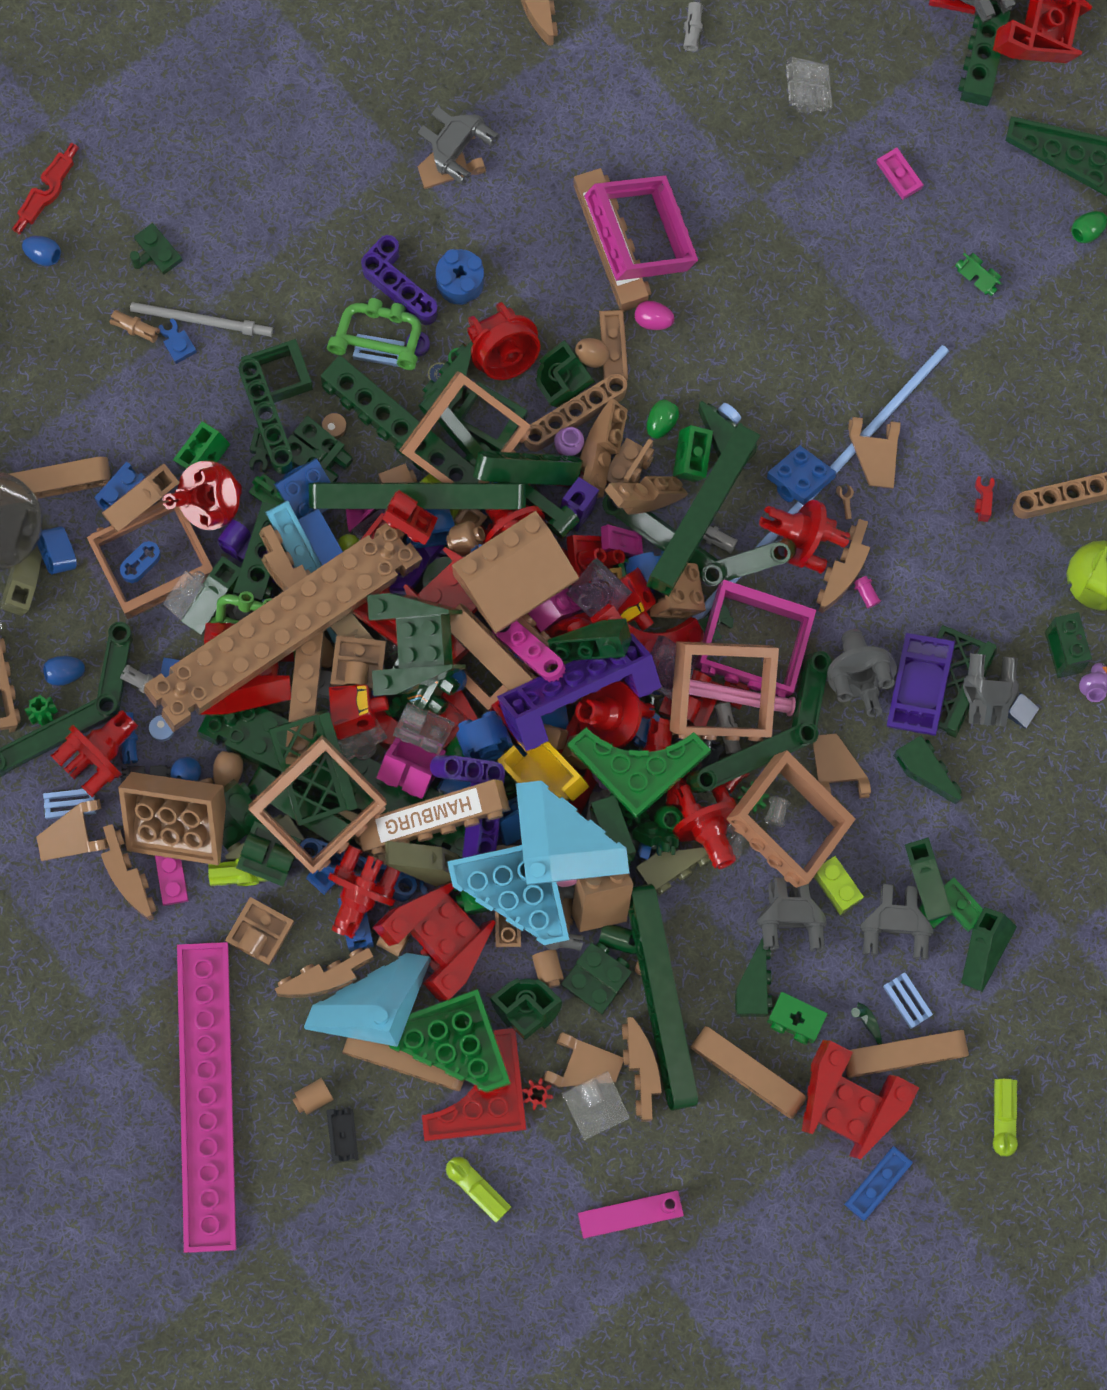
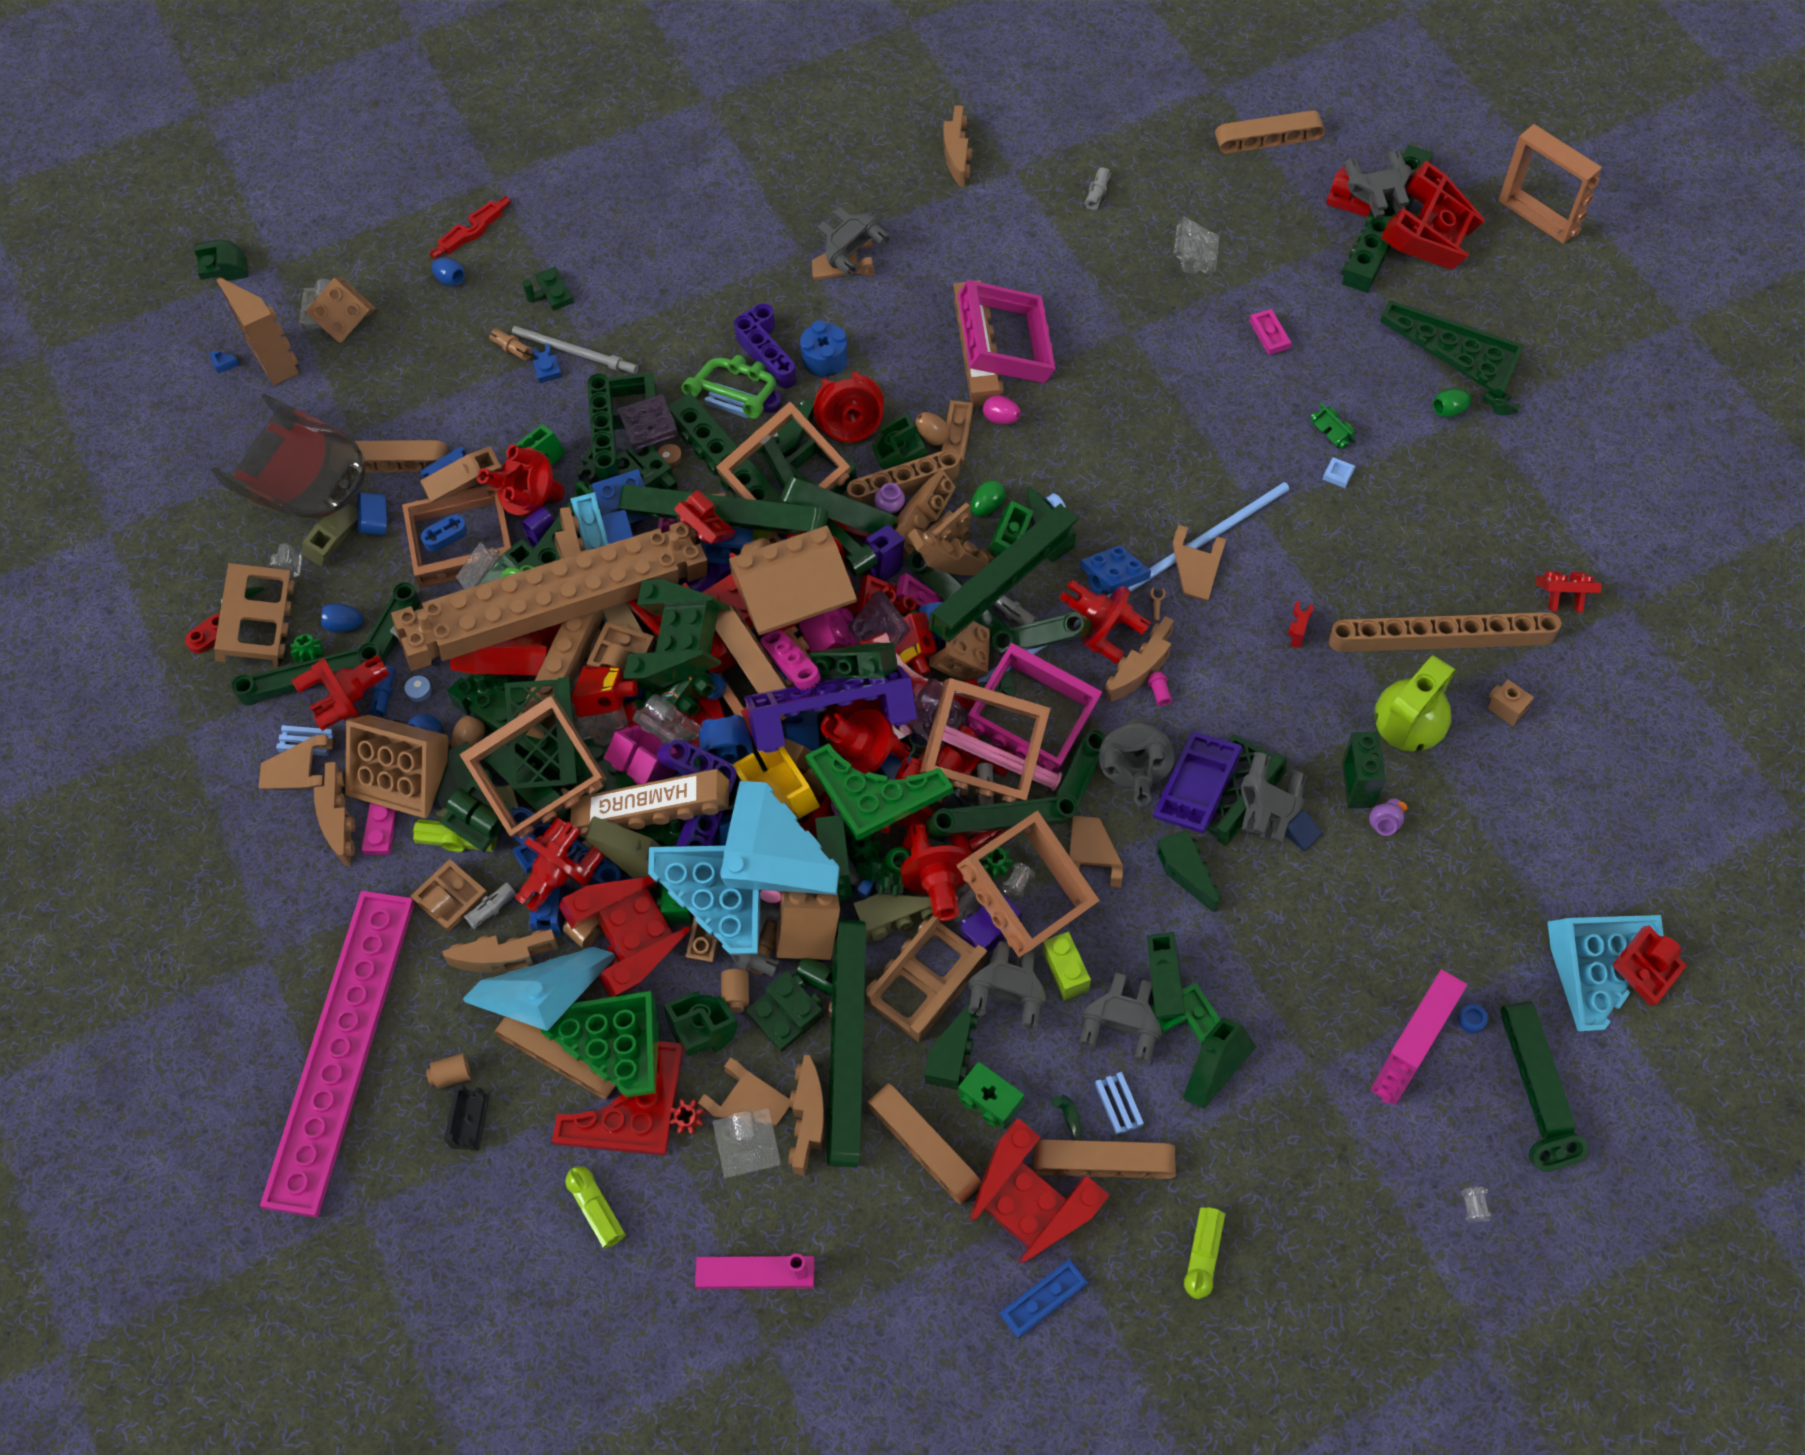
camera: 20 degrees right, 15 degrees down
(301, 933) = (490, 905): none -> light grey pin
(312, 406) = (648, 427): none -> clear purple plate
(728, 928) = (939, 990): none -> medium nougat window
(754, 865) = (980, 929): none -> dark purple brick
(993, 323) = (1339, 472): none -> light blue tile

